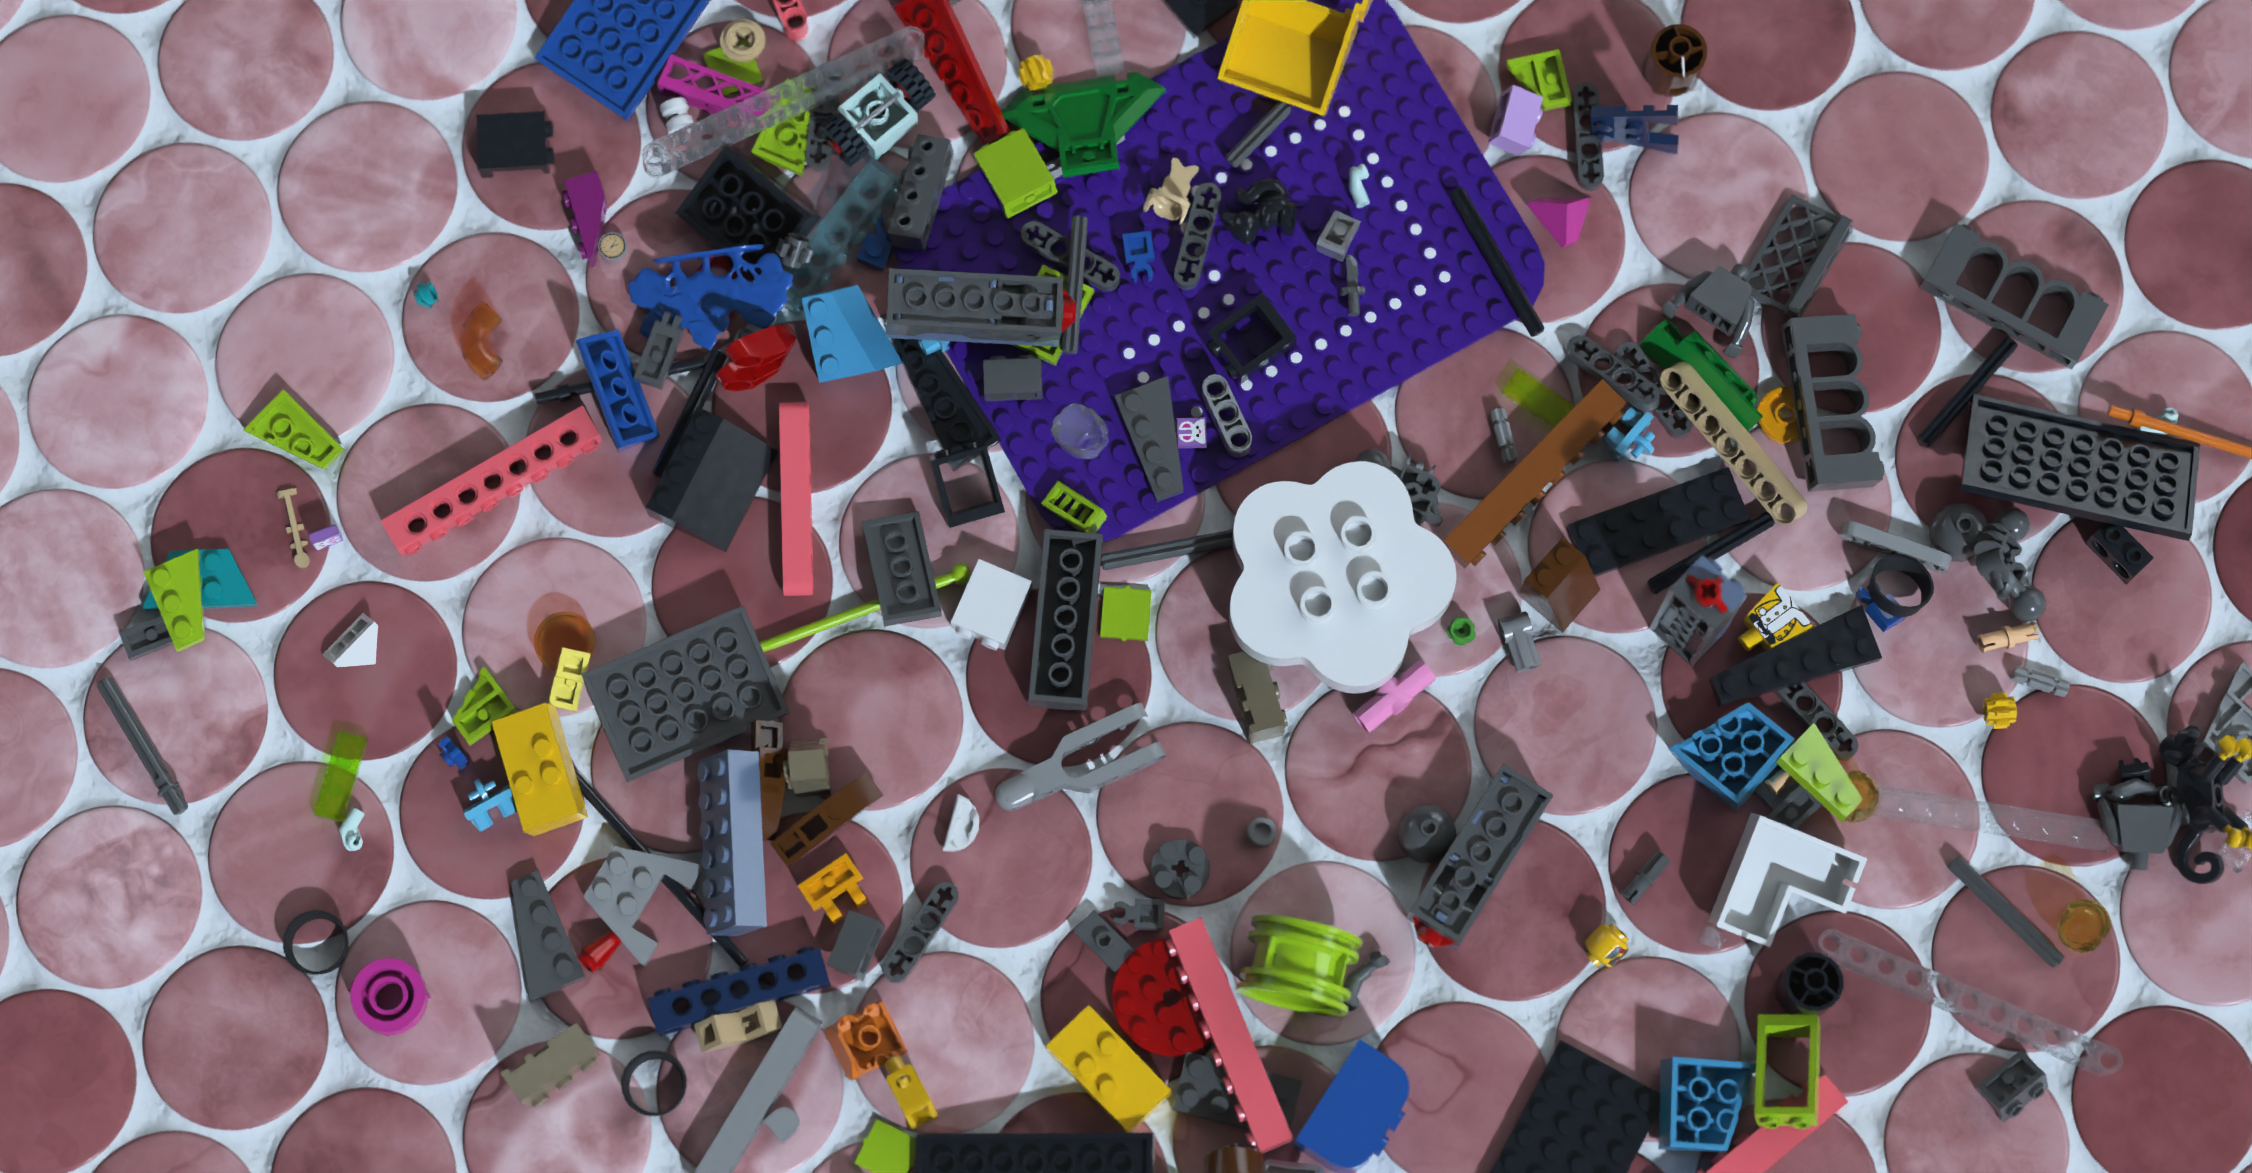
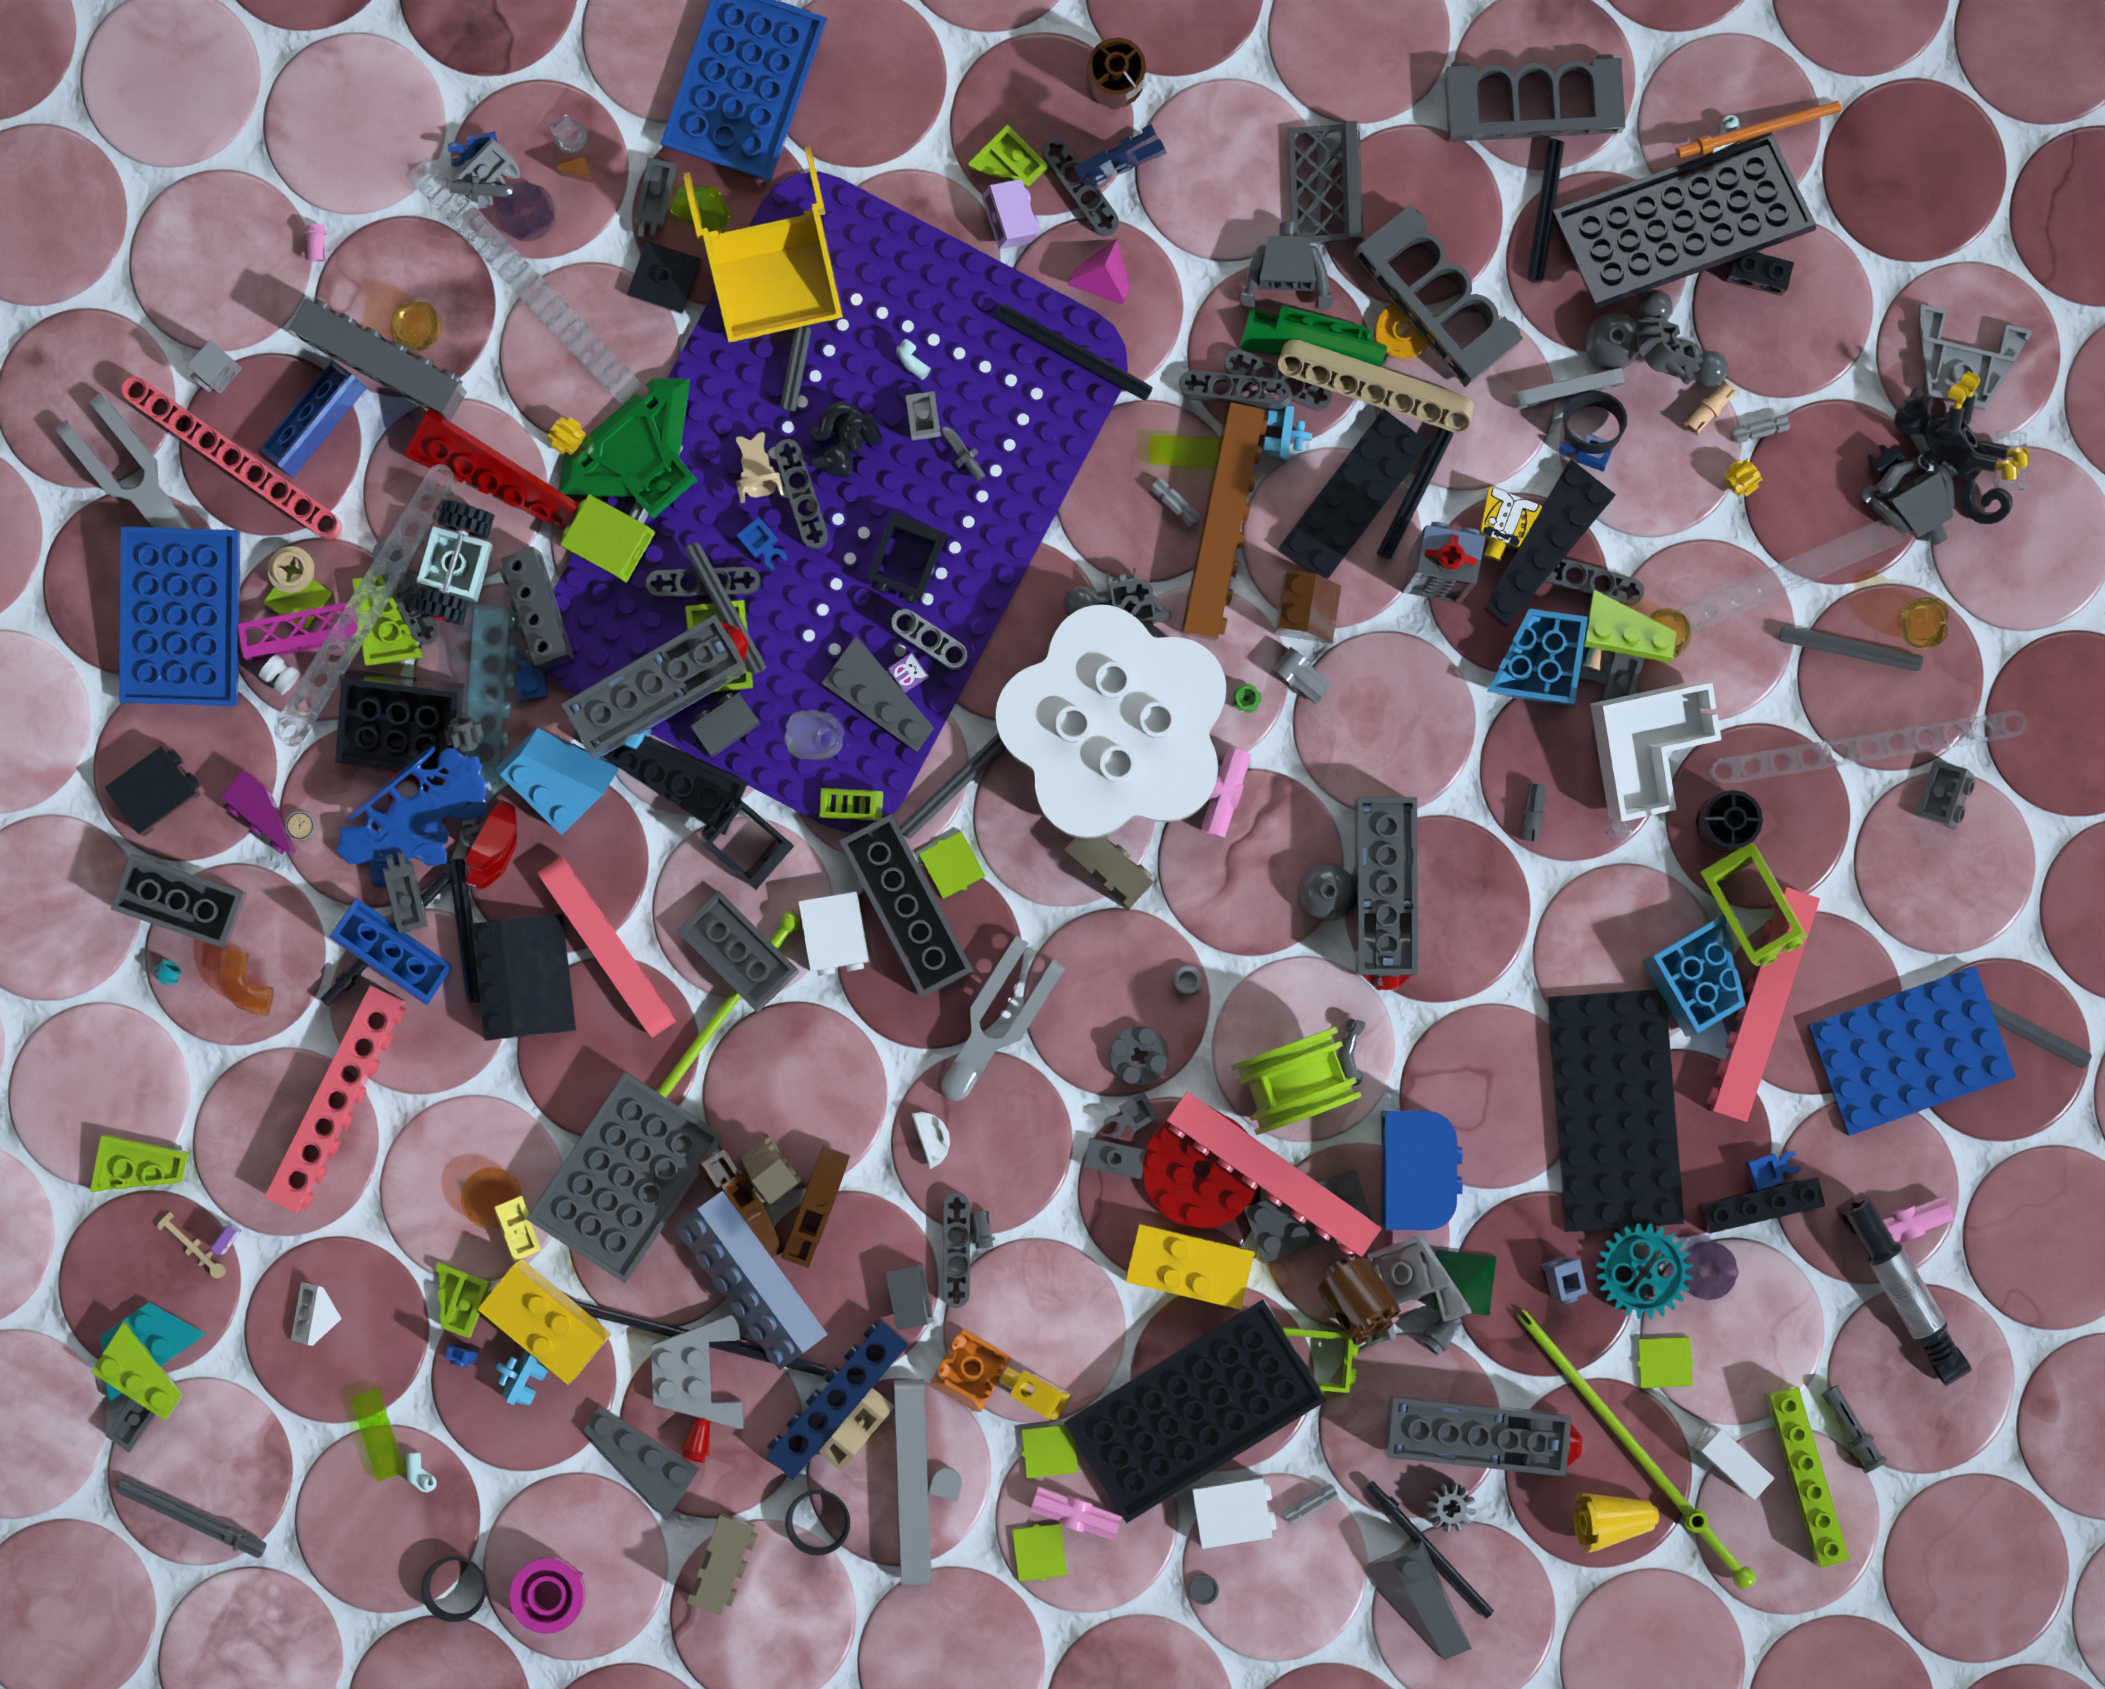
camera: 30 degrees left, 10 degrees up
(474, 242) = (178, 901): none -> dark grey brick
(830, 883) = (853, 1258): light orange plate -> none
(953, 929) = (982, 1230): none -> dark grey pin
(1606, 945) = (1537, 892): yellow head -> none

